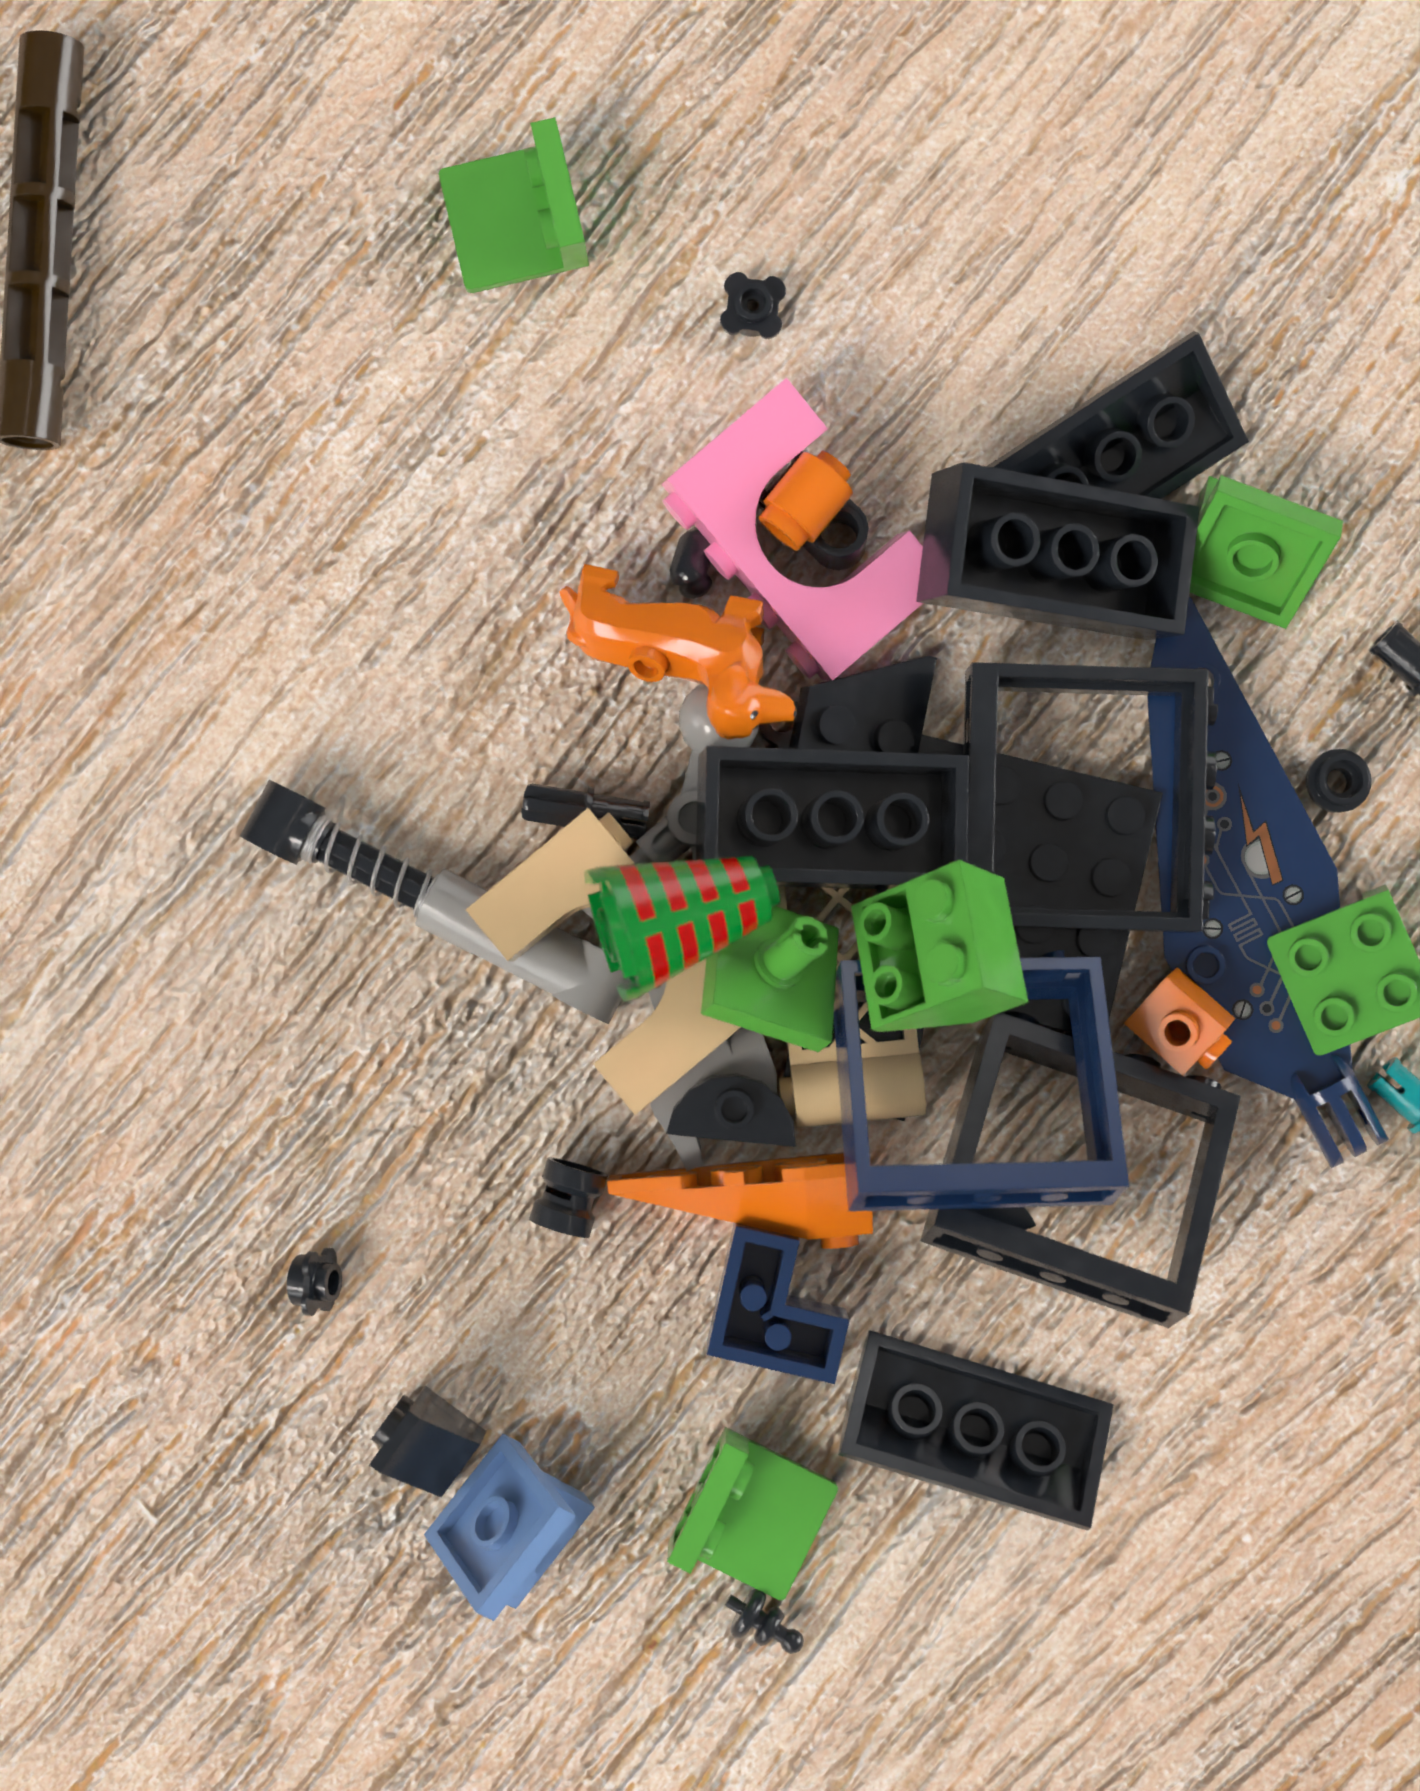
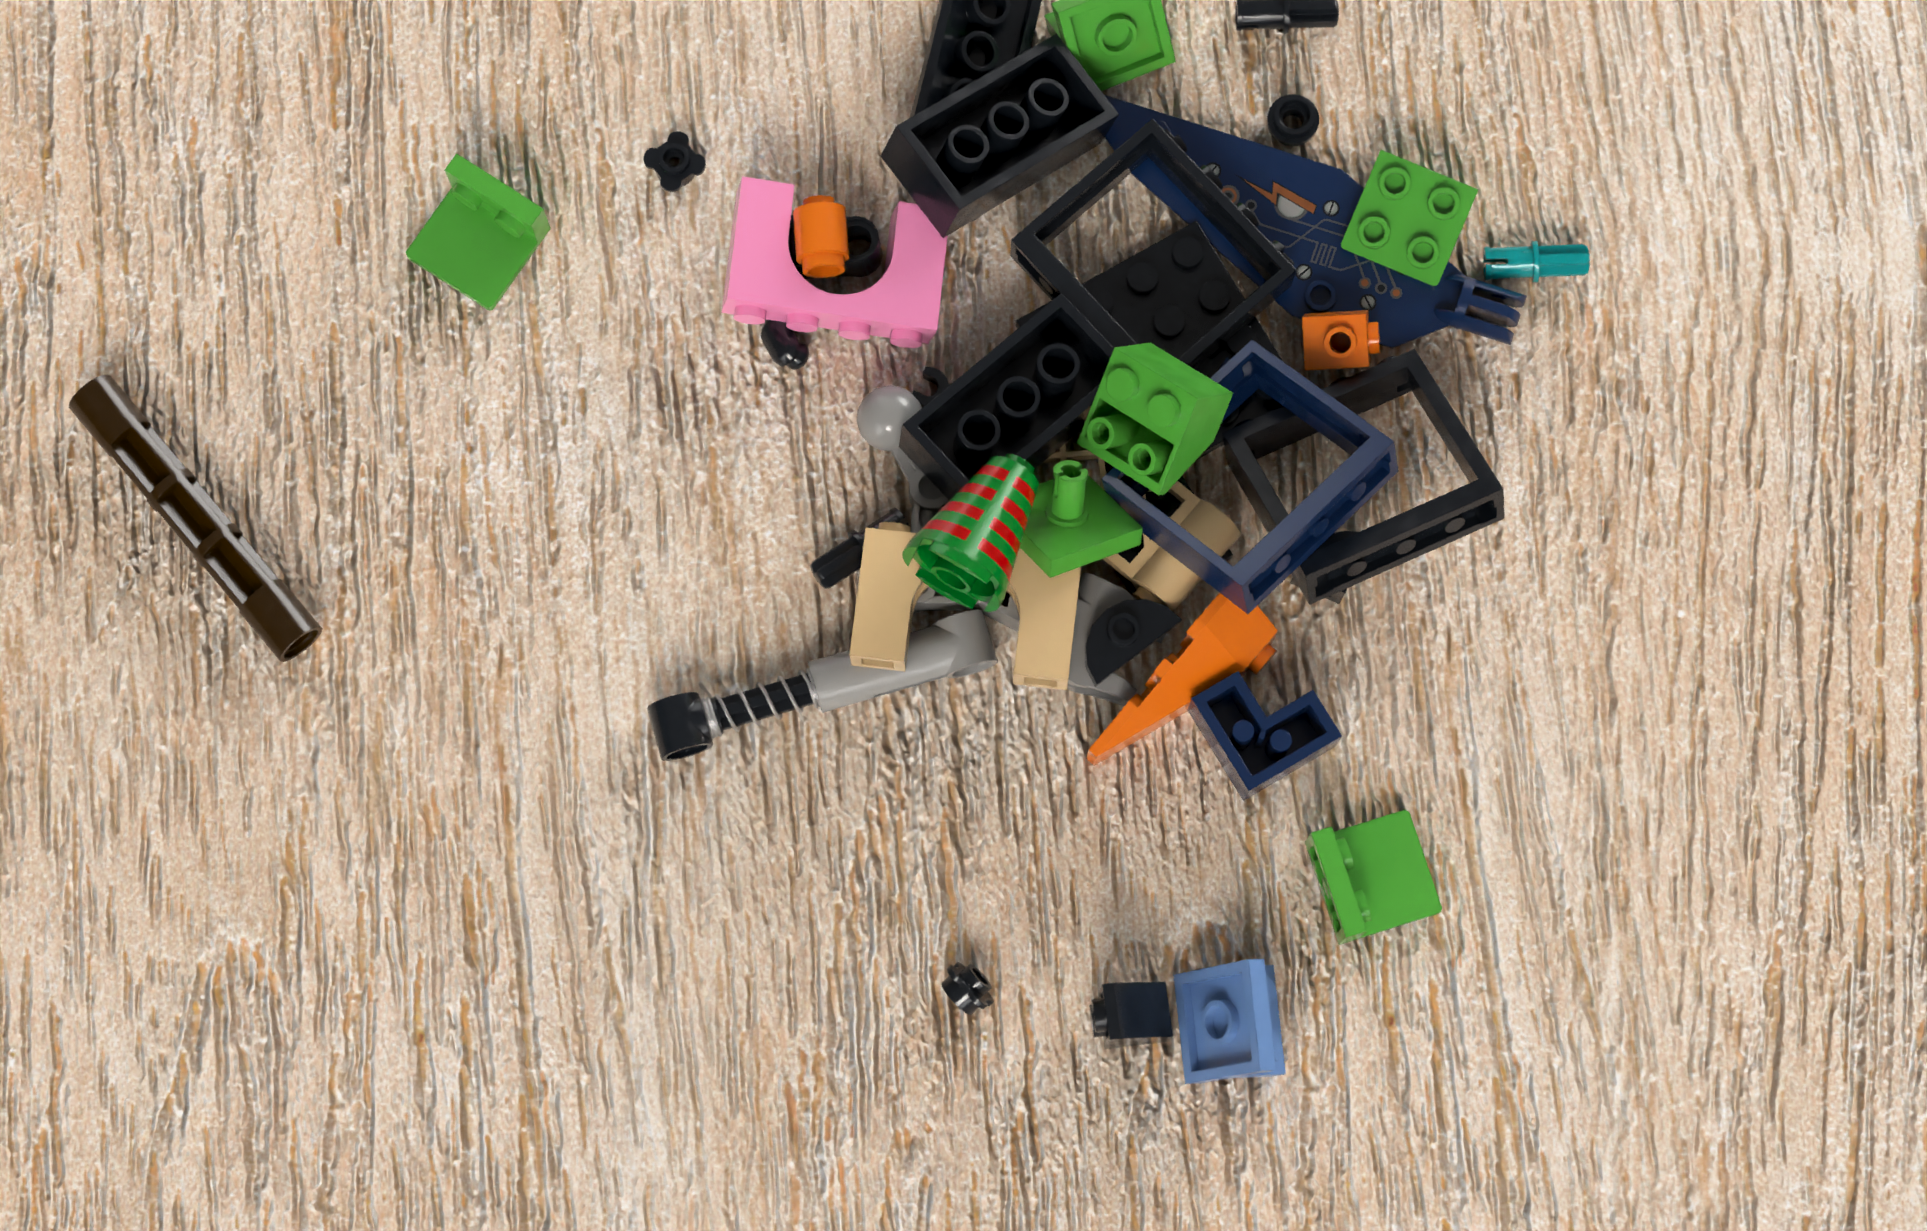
camera: 45 degrees left, 10 degrees down
(567, 1212) = (1084, 794): black wheel -> none
(681, 643) = (826, 390): orange animal -> none
(767, 1624) = (1447, 936): black hair -> none
(866, 710) = (971, 329): black wing -> none
(976, 1430) = (1454, 695): black slope -> none

